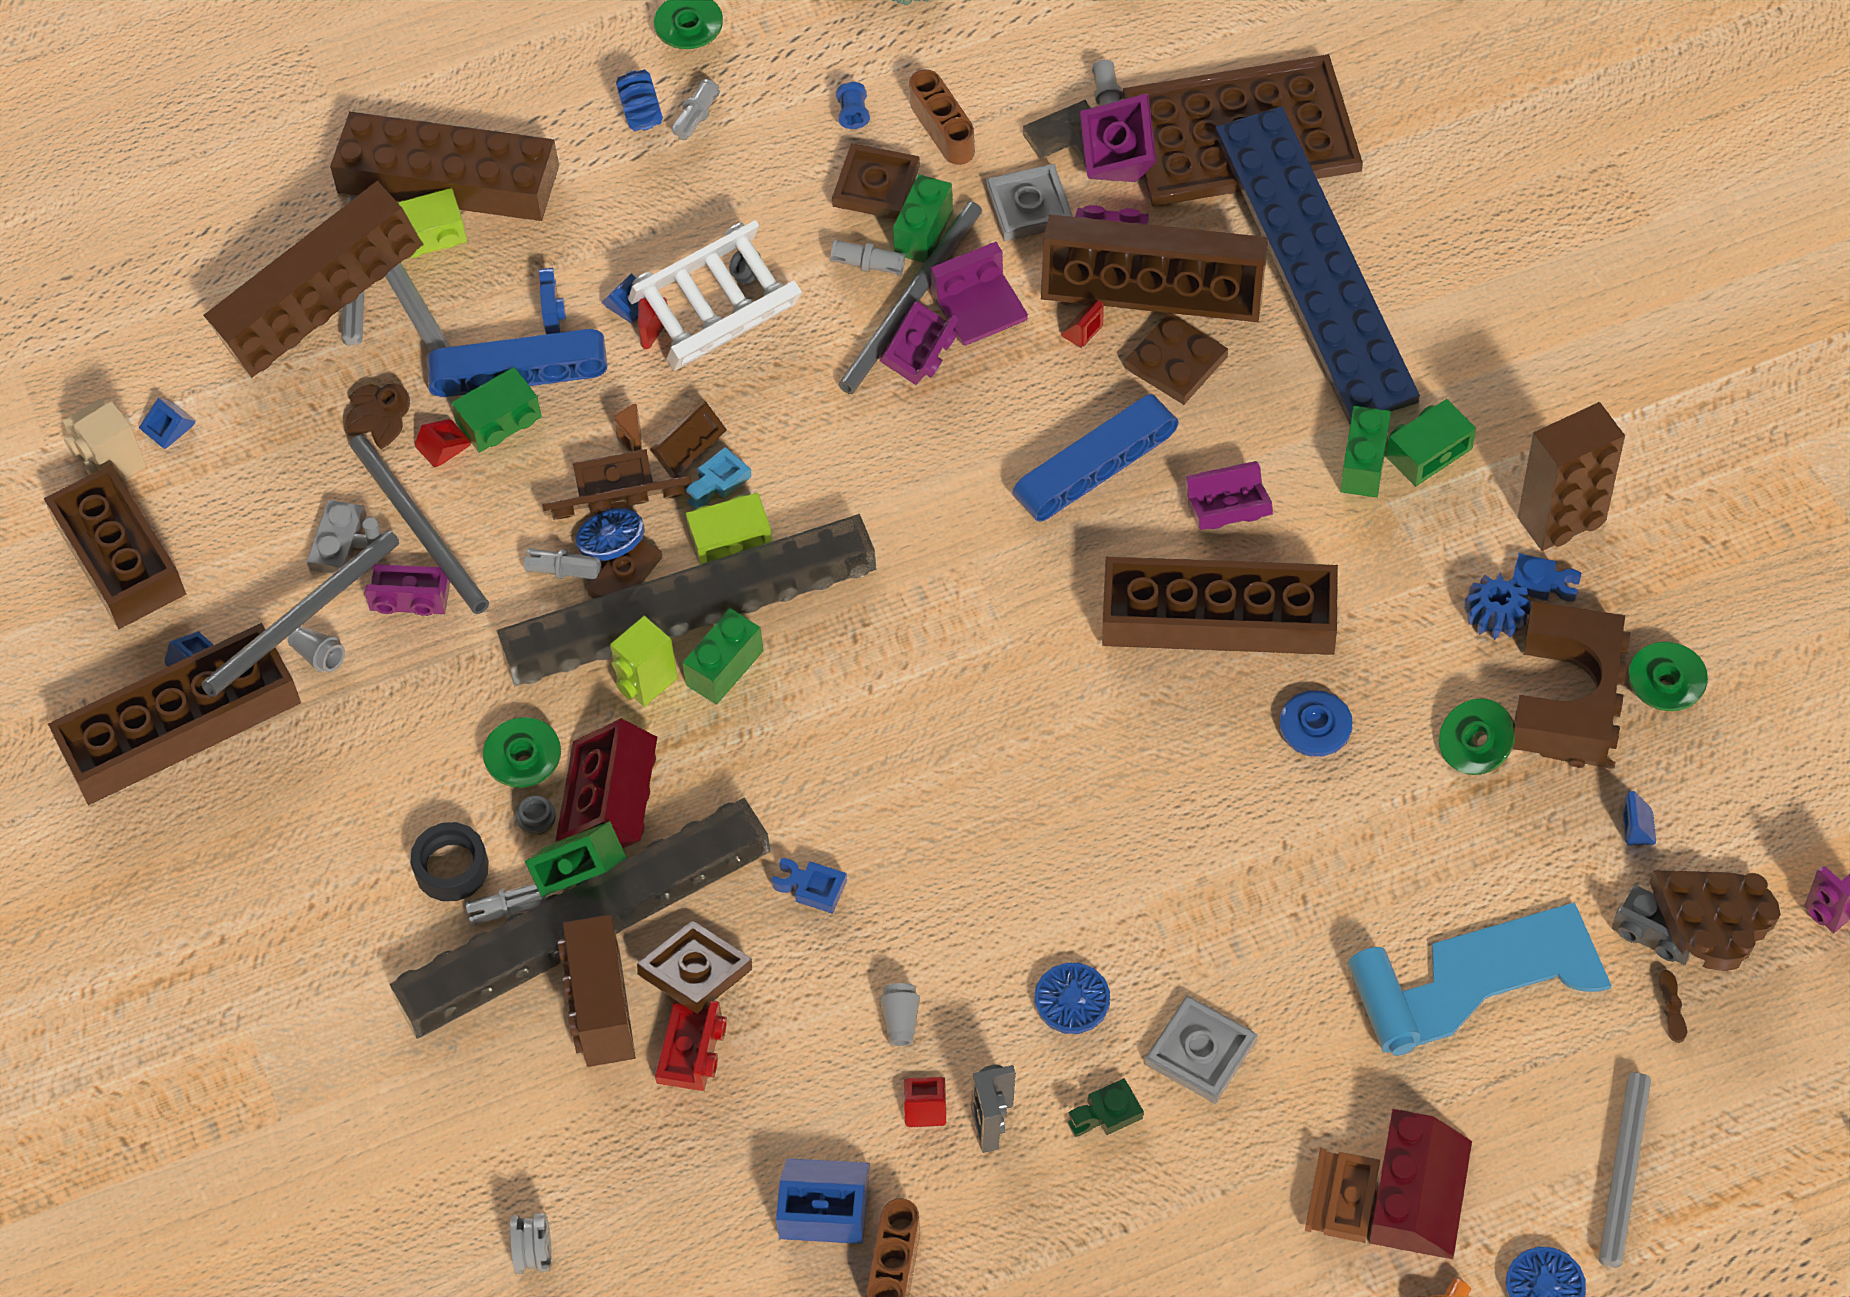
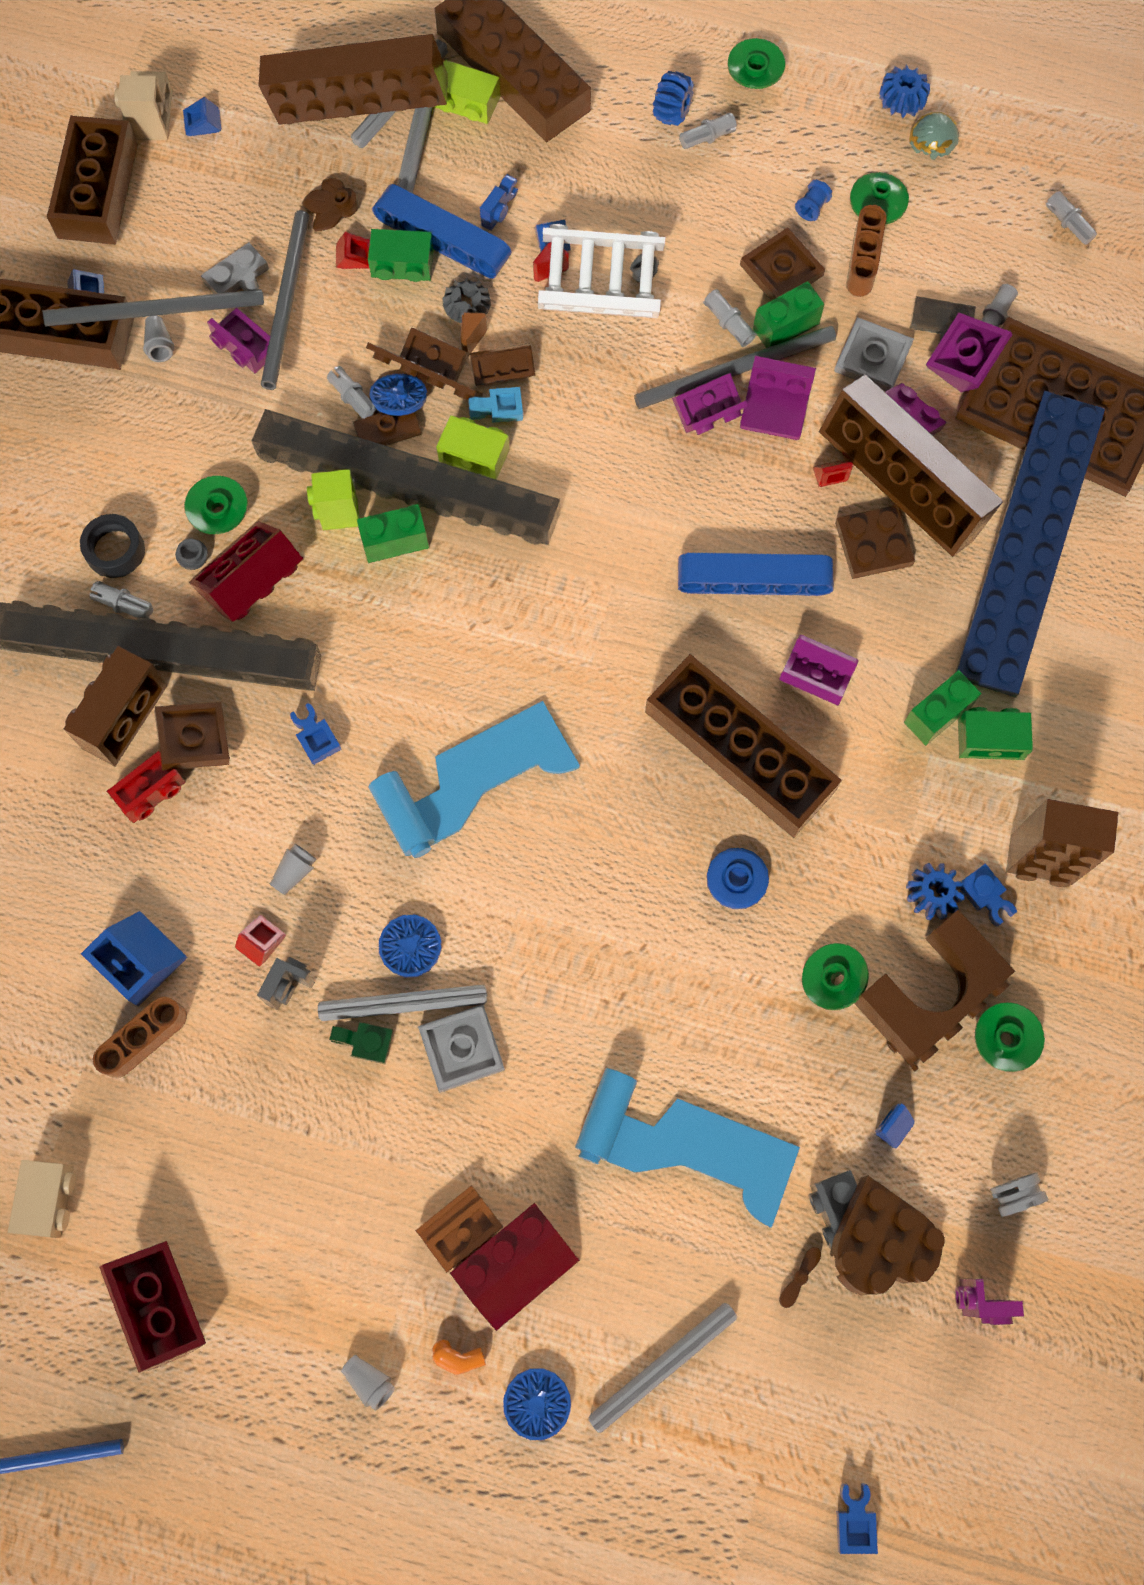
camera: 35 degrees right, 15 degrees up
(575, 859) = (176, 605): green brick -> none
(601, 421) = (452, 299): none -> dark grey gear
(901, 59) = (892, 201): none -> green dish
(987, 815) = (467, 774): none -> dark azure door
(1110, 1051) = (402, 1002): none -> light grey axle
(1796, 794) = (1019, 1199): none -> light grey wheel

